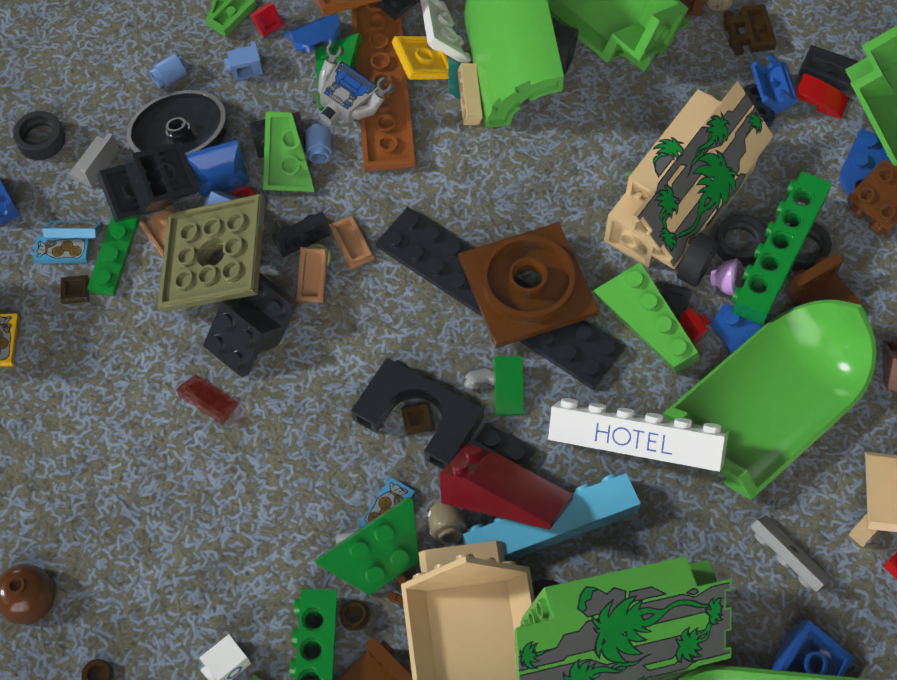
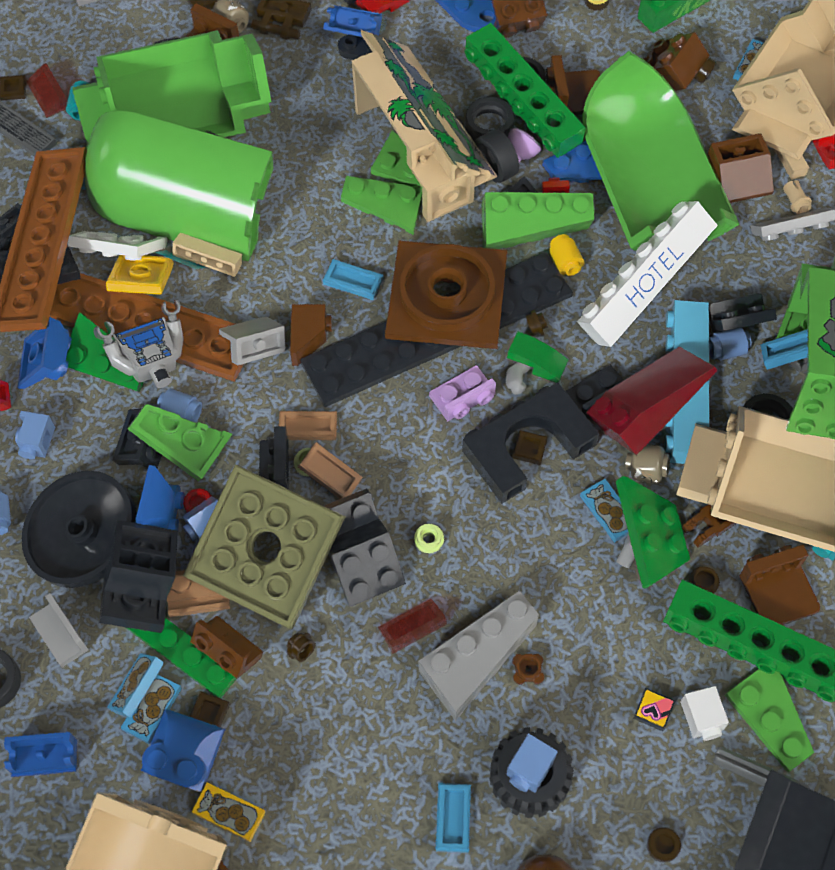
camera: 65 degrees left, 0 degrees up
(33, 285) = (182, 750): none -> blue slope
(58, 500) = (453, 817): none -> dark azure tile
(102, 526) = (531, 764): none -> medium blue brick
(123, 558) = (528, 802): none -> black tyre
(129, 273) = (225, 646): none -> reddish brown bracket
(150, 323) = (299, 642): none -> dark brown plate
(195, 454) = (476, 654): none -> light grey wedge
(208, 495) = (533, 661): none -> reddish brown plate
(214, 620) = (654, 709): none -> tile
(287, 370) = (428, 529): none -> yellowish green plate
(403, 162) = (254, 339): none -> light grey panel
(435, 198) = (308, 330): none -> reddish brown slope
(441, 342) = (463, 393): none -> lavender bracket
(509, 210) = (353, 279): none -> dark azure tile
(543, 370) = (536, 323): none -> dark brown plate
(601, 194) = (387, 200): none -> bright green wing
(612, 543) = (729, 344): none -> medium blue brick
(629, 364) = (566, 255): none -> yellow brick
(649, 538) = (739, 313): none -> black bracket
(820, 477) = (743, 167): none -> slope
(824, 546) = (799, 201): none -> tan pin

